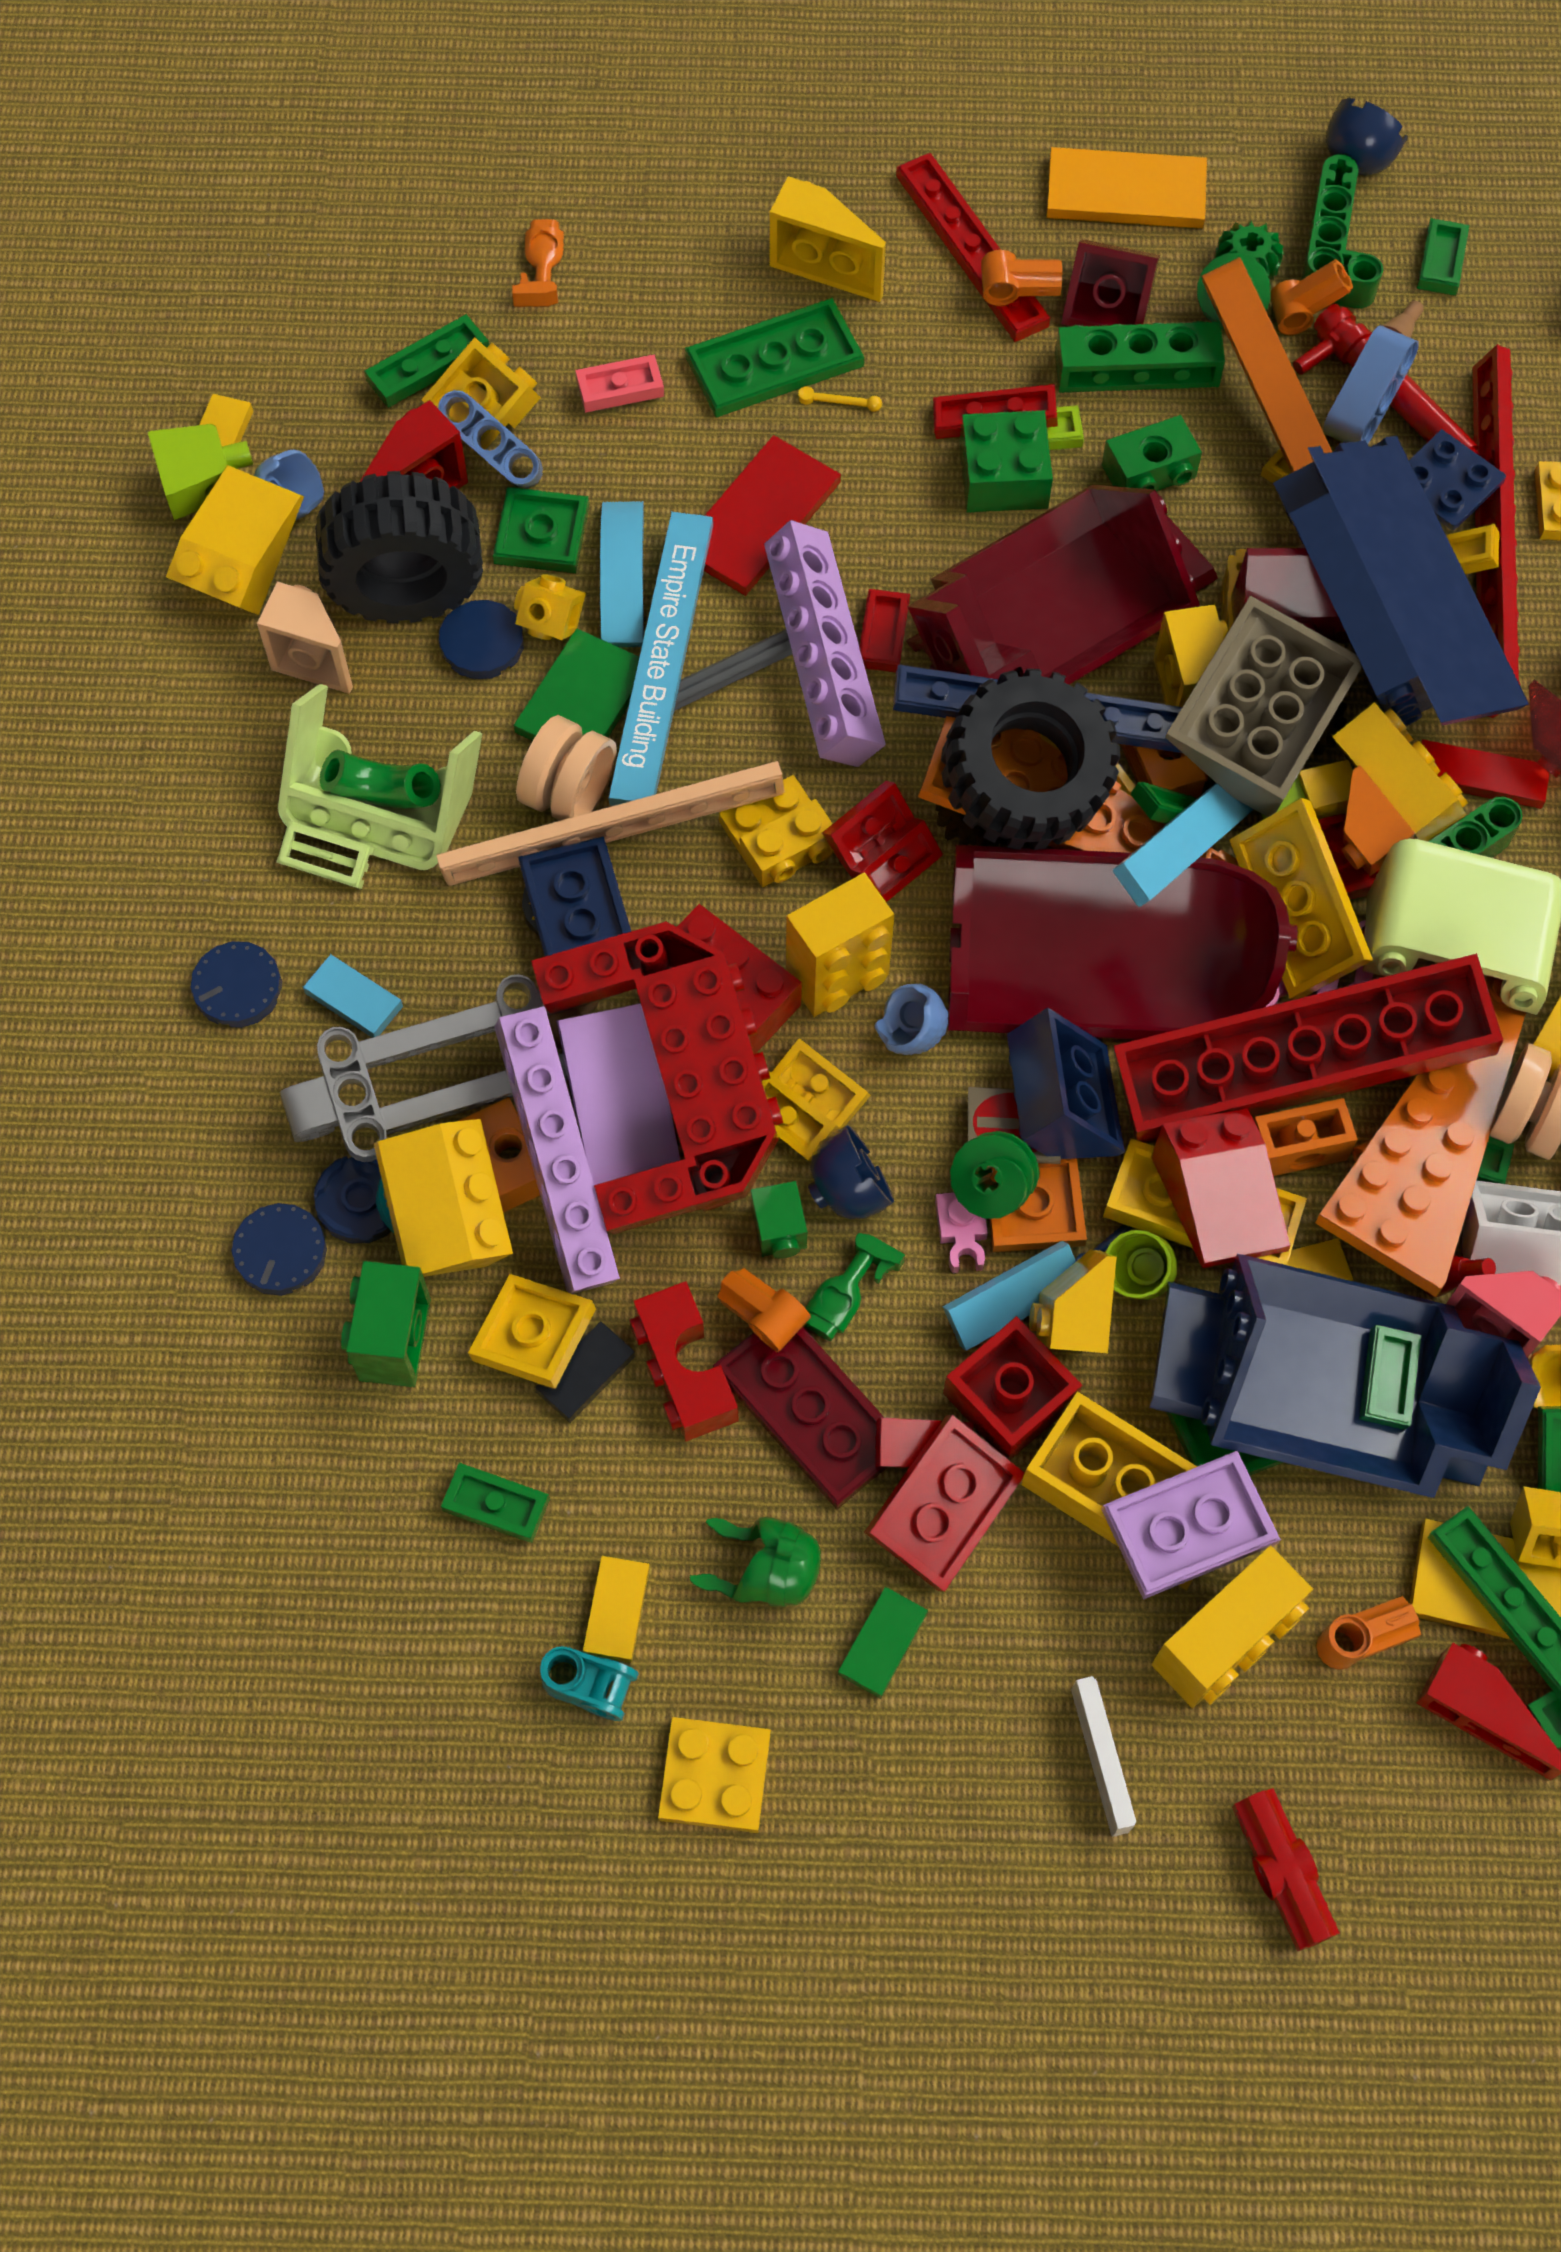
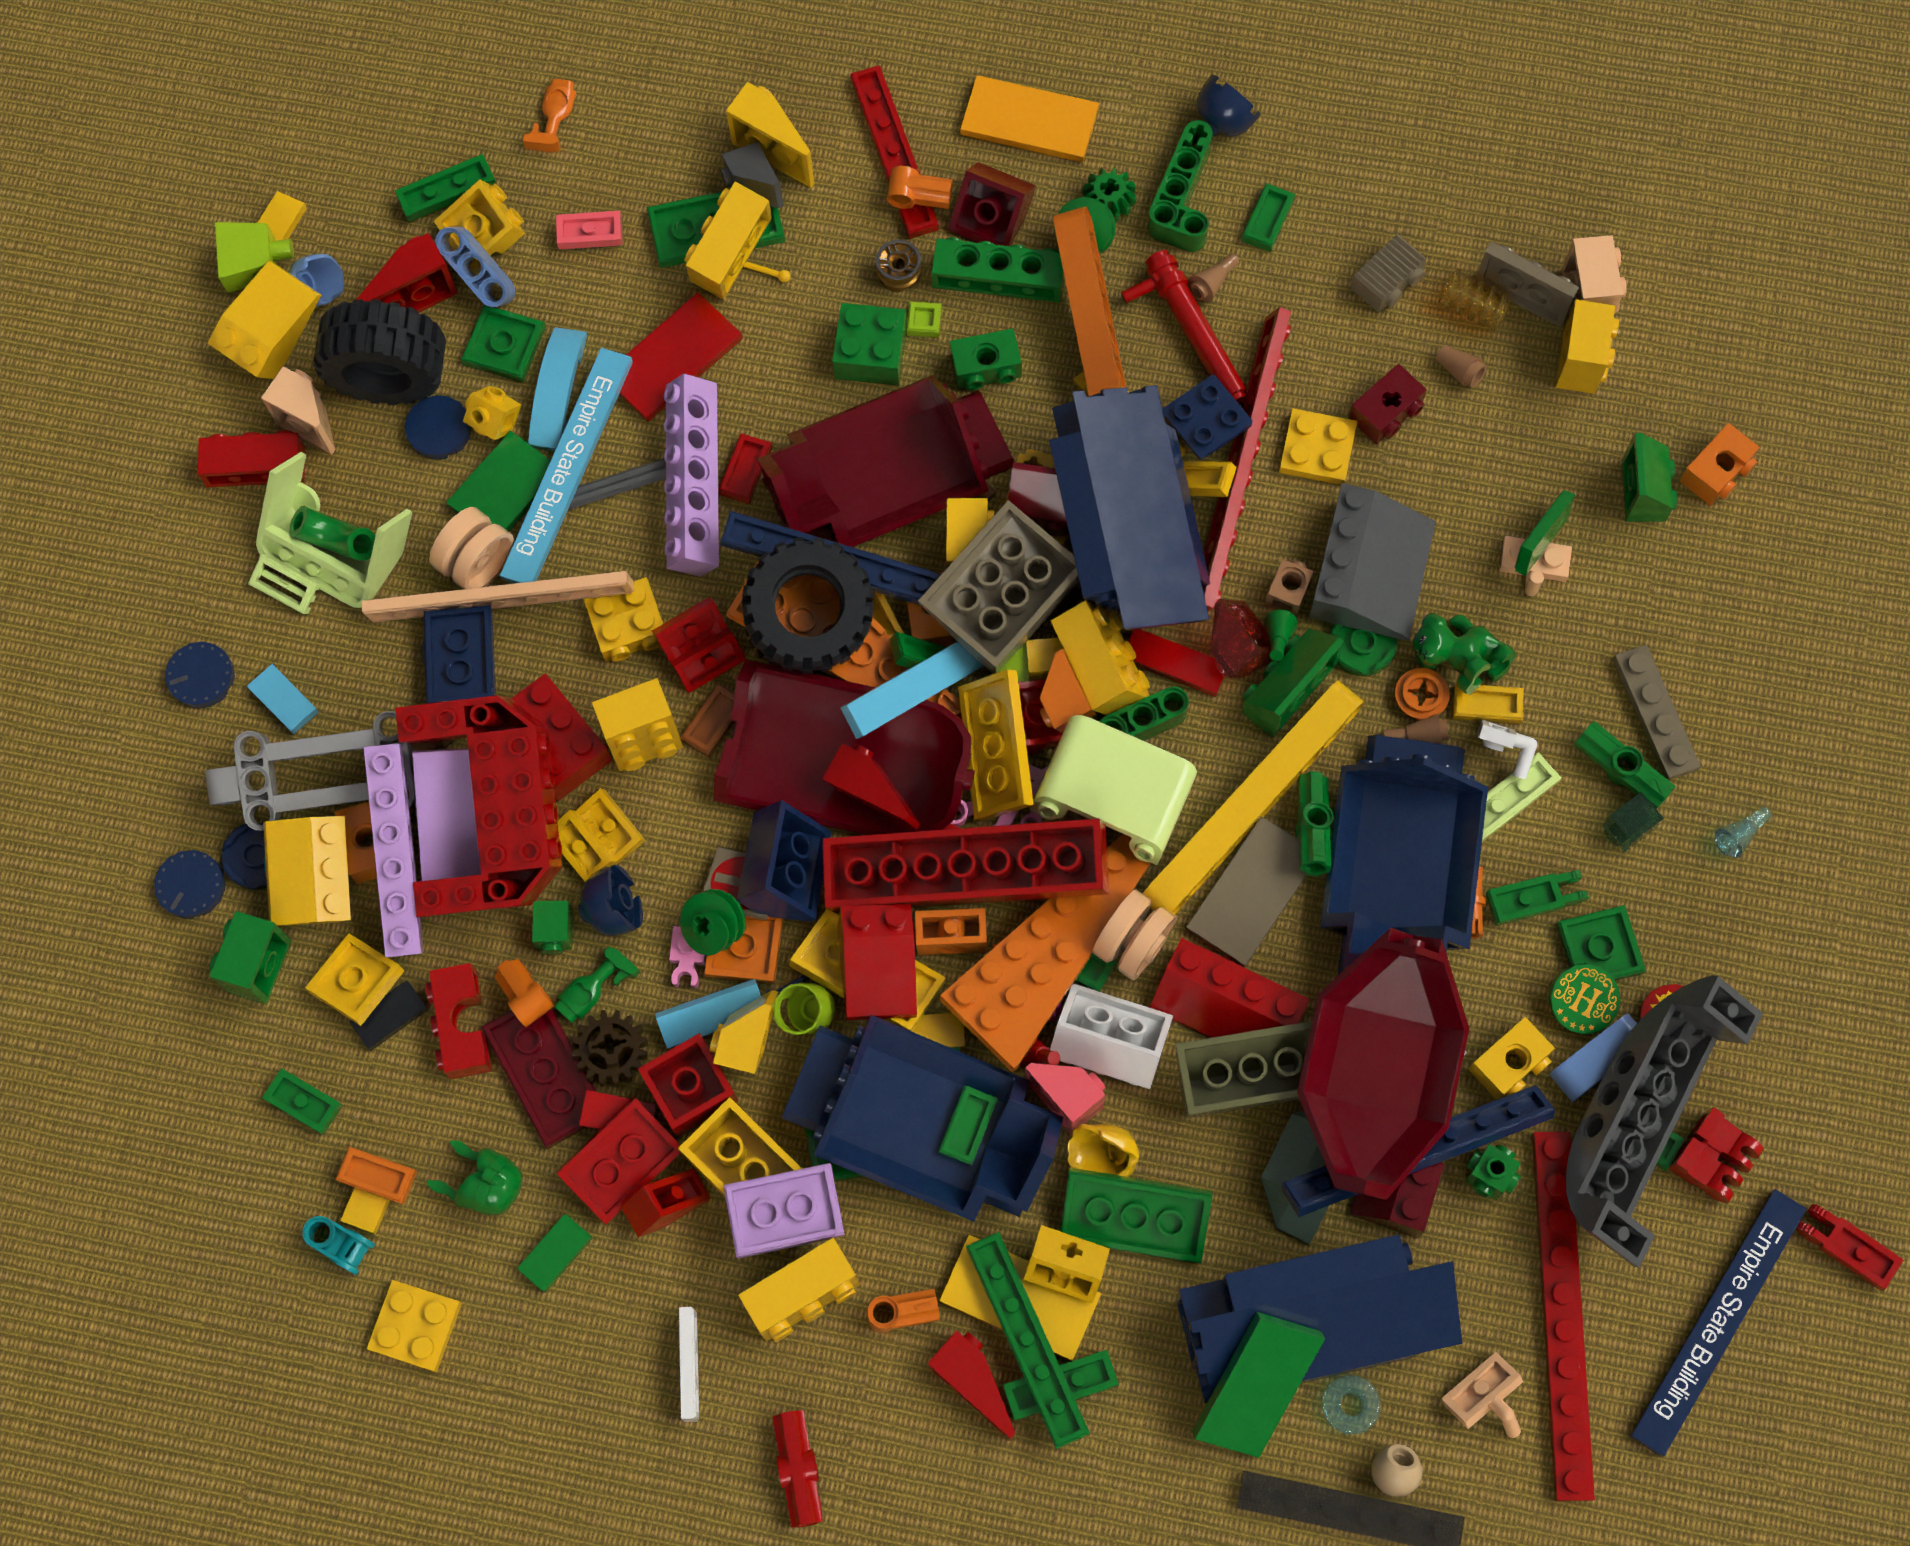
camera: 15 degrees right, 5 degrees up
(242, 710) = (245, 458): none -> red brick
(620, 1581) = (376, 1175): none -> orange tile
(803, 361) = (728, 239): none -> yellow brick
(813, 290) = (752, 170): none -> dark grey slope
(886, 1380) = (596, 1050): none -> dark brown gear
(912, 1020) = (687, 789): medium blue hair -> none
(921, 934) = (710, 722): none -> dark orange tile
(949, 408) = (875, 294): red tile -> none
(1014, 355) = (890, 256): none -> pearl gold wheel
(1015, 1548) = (664, 1202): none -> red slope
(1142, 971) = (864, 780): none -> red slope
(1297, 301) = (1138, 241): orange piece -> none
(1371, 386) = (1170, 327): medium blue beam -> none

